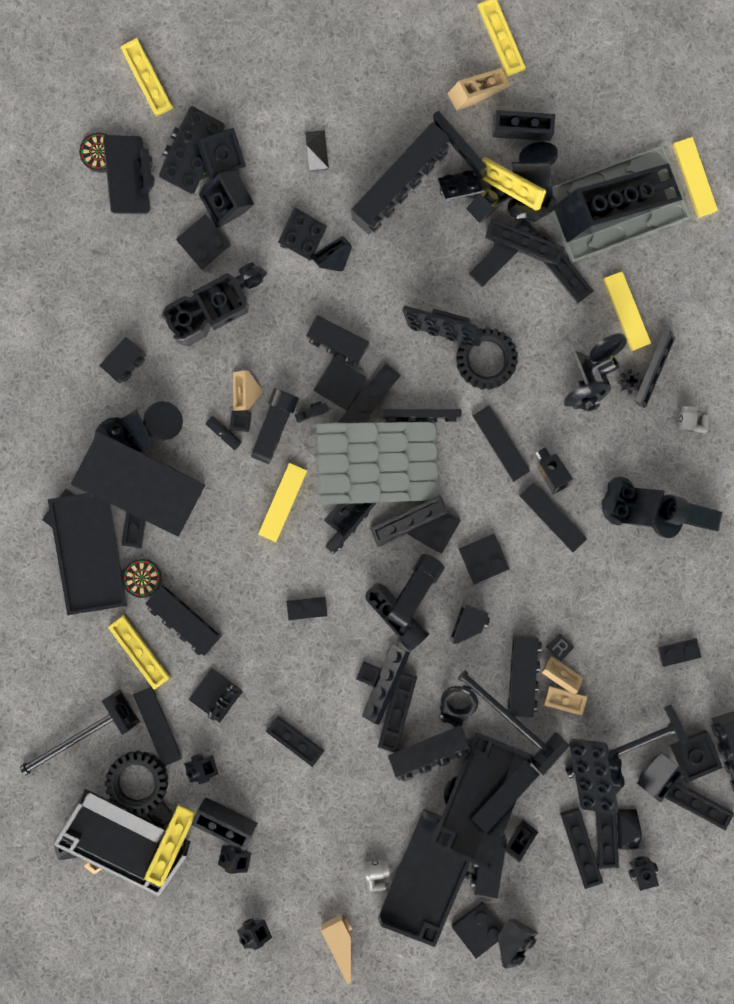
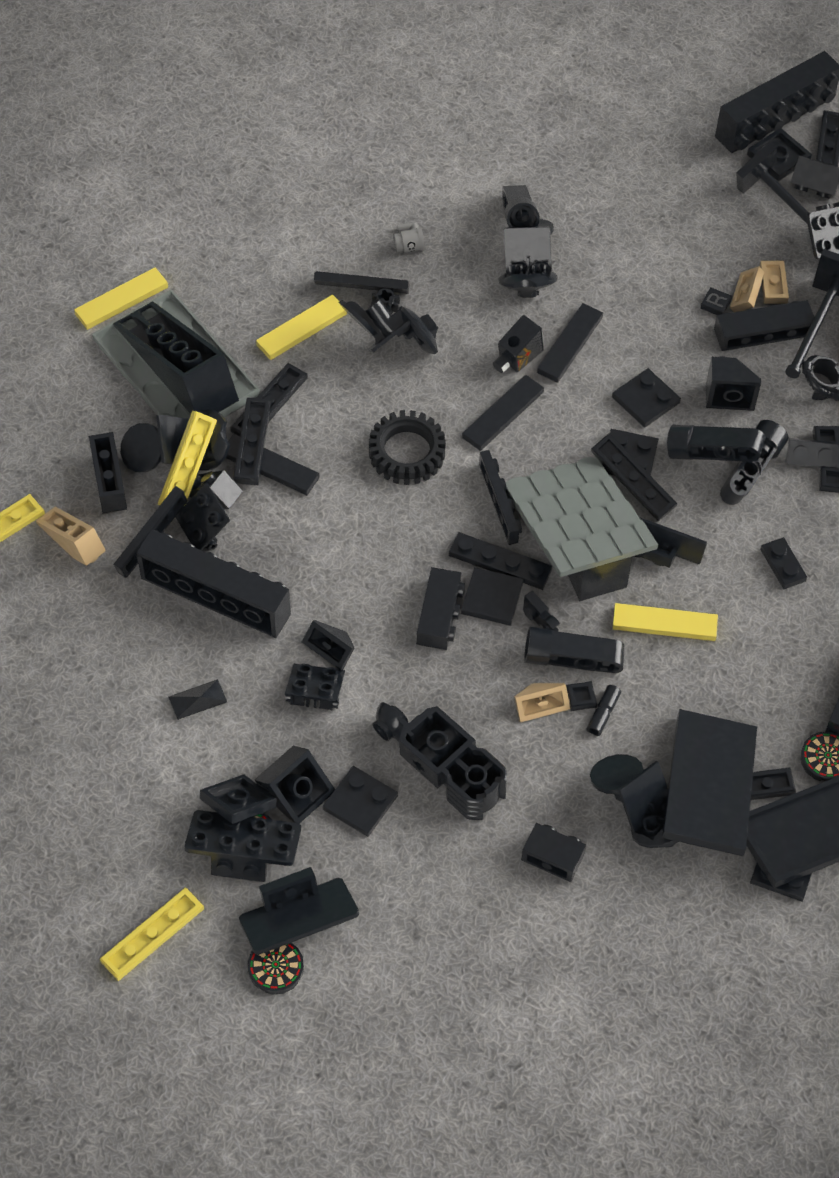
camera: 105 degrees left, 30 degrees down
(444, 324) = (381, 489): black bracket -> none
(679, 652) = (673, 194): black plate -> none

